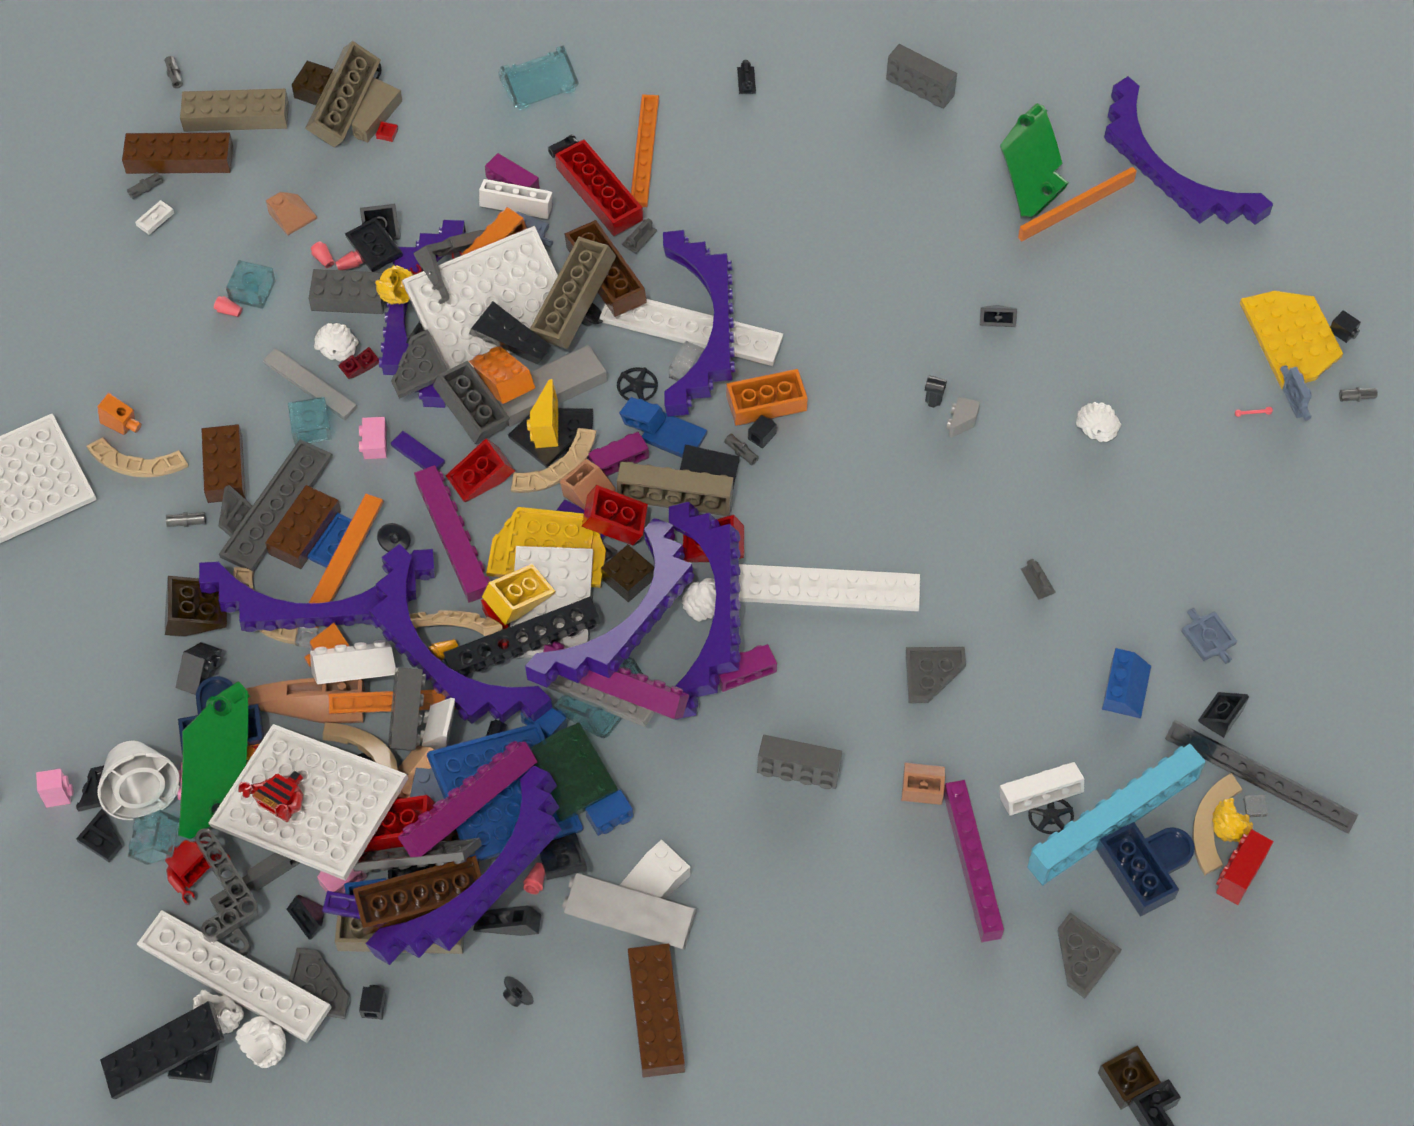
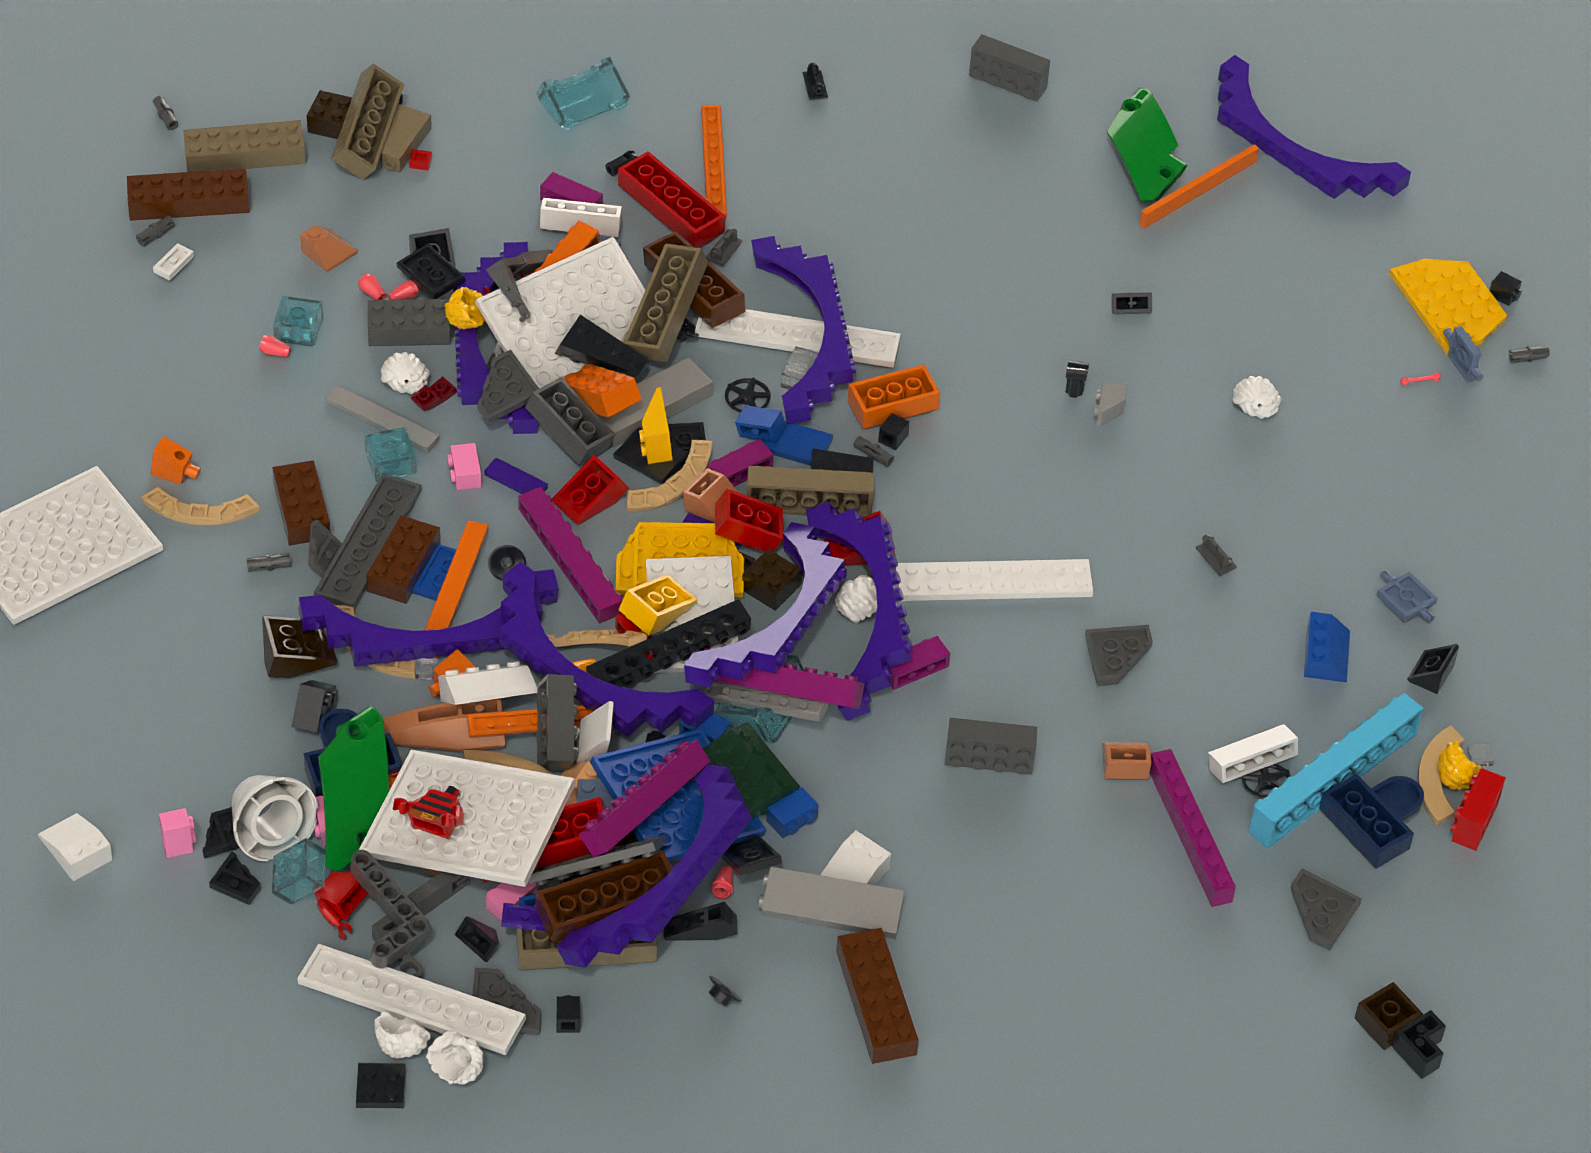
camera: 10 degrees left, 10 degrees down
(162, 1050) = (348, 1073): black plate -> none
(1263, 777) = (1488, 727): black plate -> none

